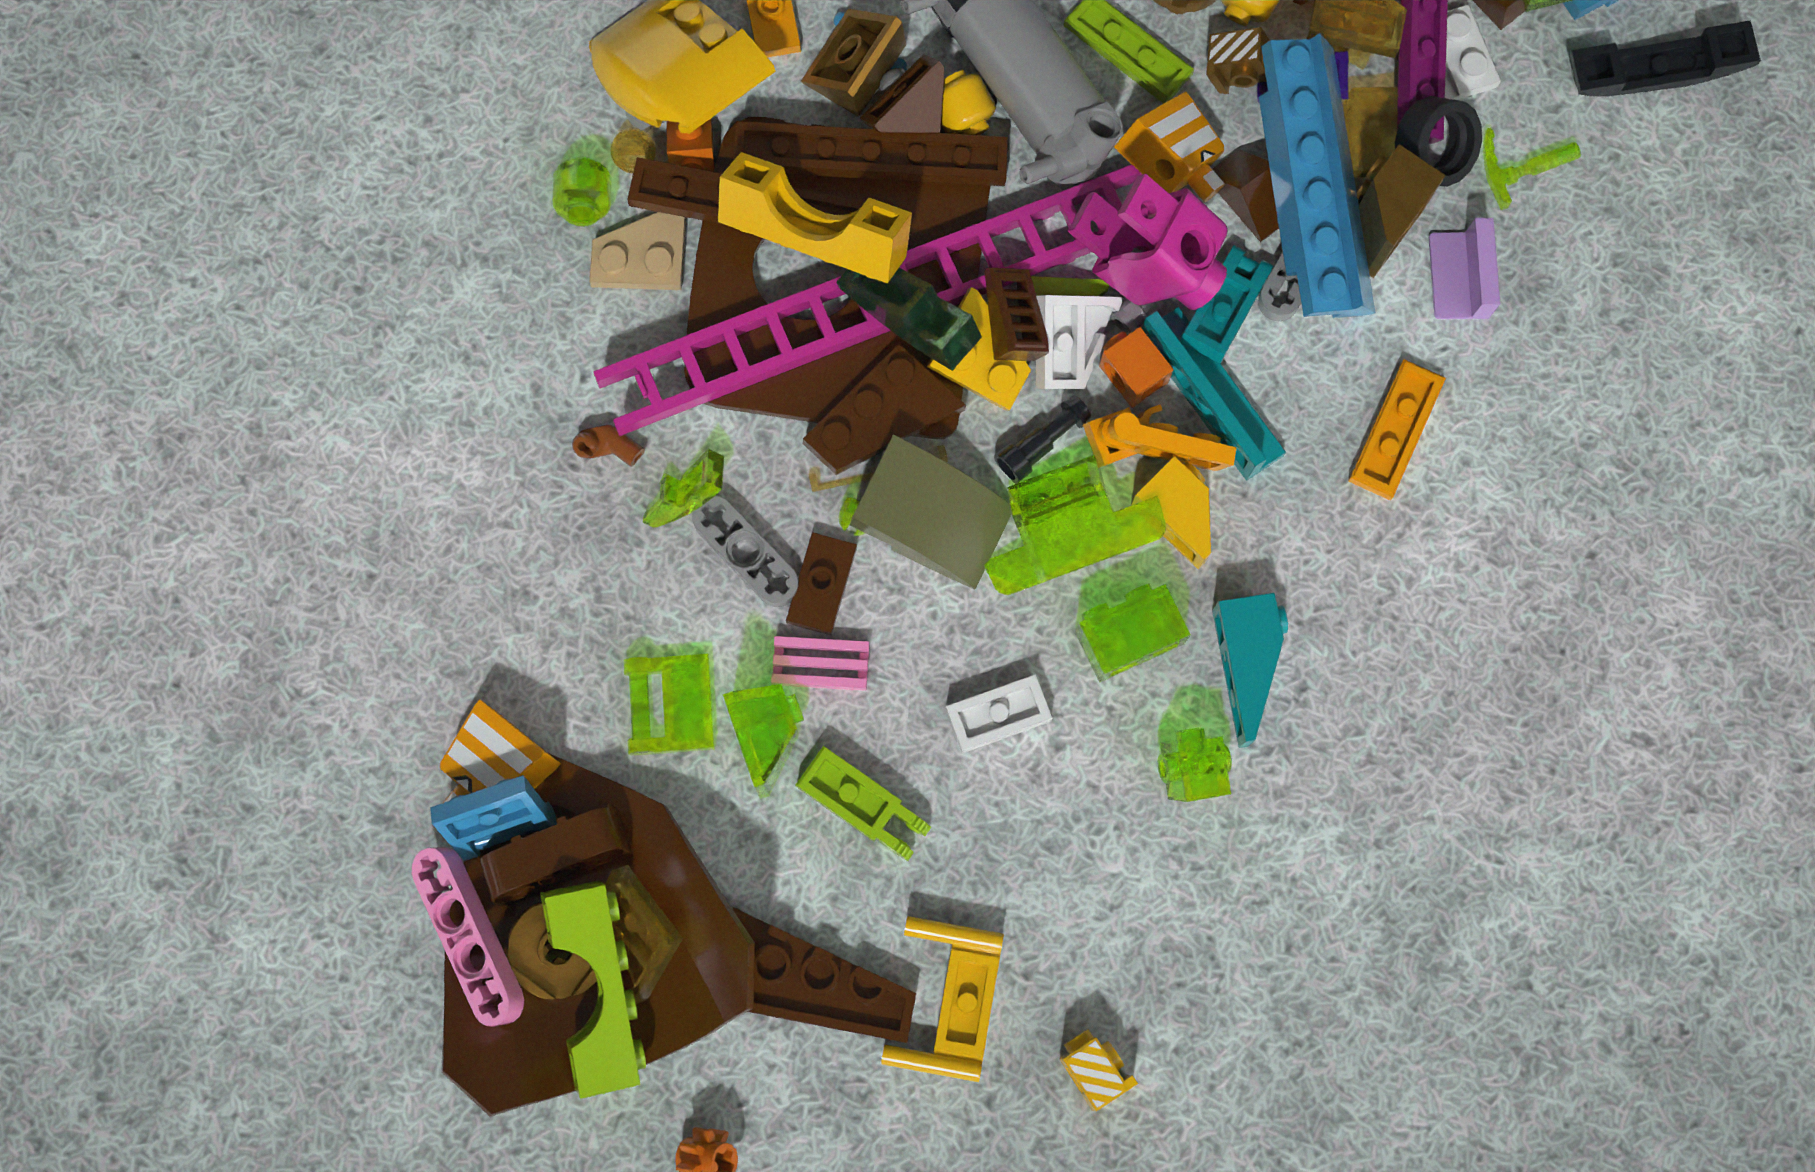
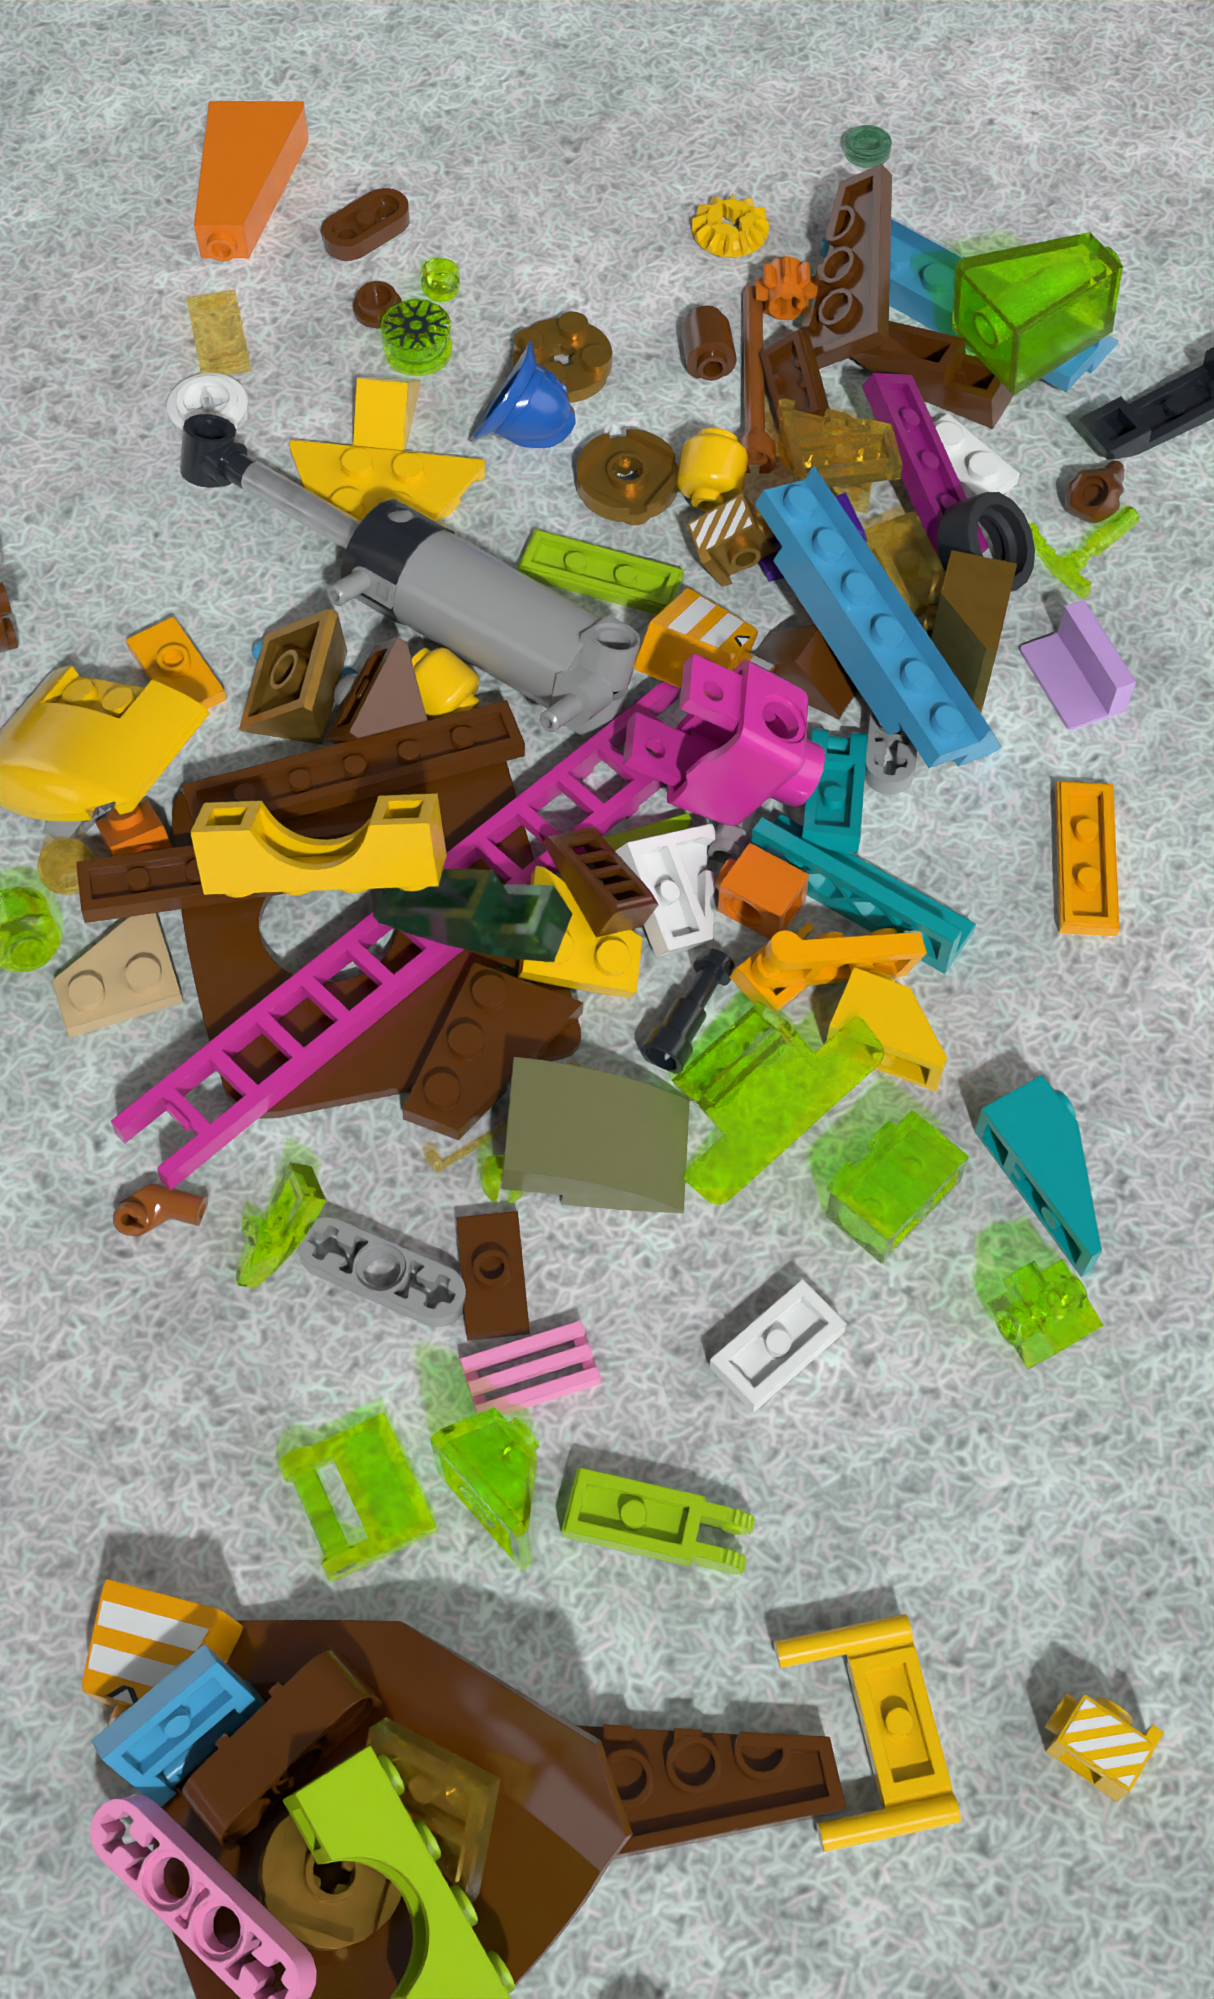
camera: 20 degrees left, 15 degrees down
(1555, 120) = (1095, 492): none -> reddish brown animal

